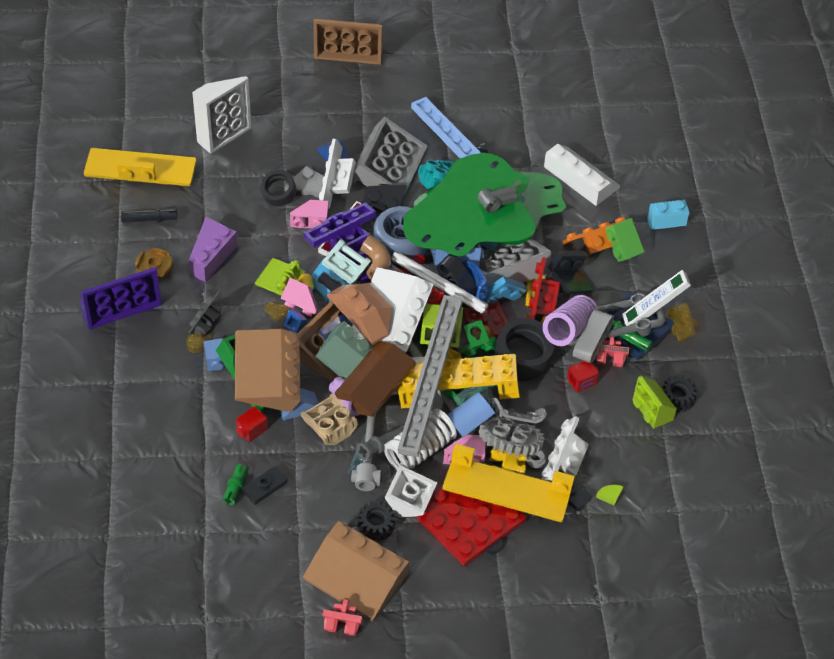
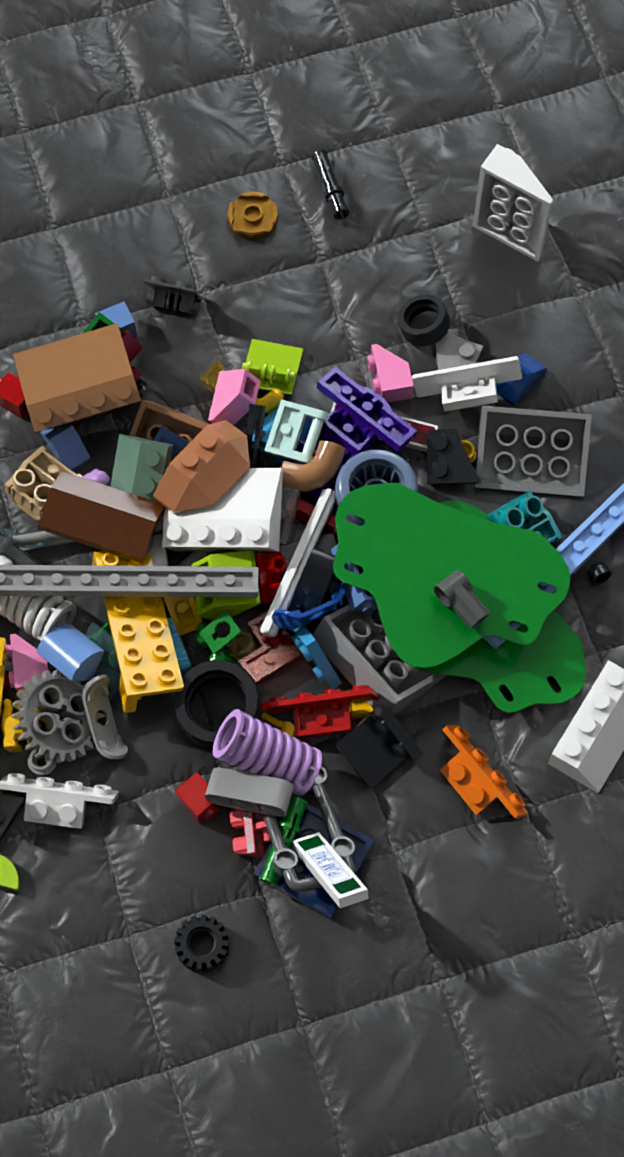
camera: 80 degrees right, 15 degrees up
(120, 298) = (167, 190): dark purple slope -> none
(140, 167) = (413, 151): yellow bracket -> none
(195, 343) = (134, 297): clear yellow tile -> none
(211, 249) = (288, 269): medium lavender wedge -> none
(295, 321) = (195, 402): blue tile -> none
(624, 240) = (467, 810): bright green brick -> none
(653, 402) = (168, 905): lime slope -> none
(668, 214) = (551, 873): medium azure brick -> none
(683, 321) = (334, 931): clear yellow hips -> none

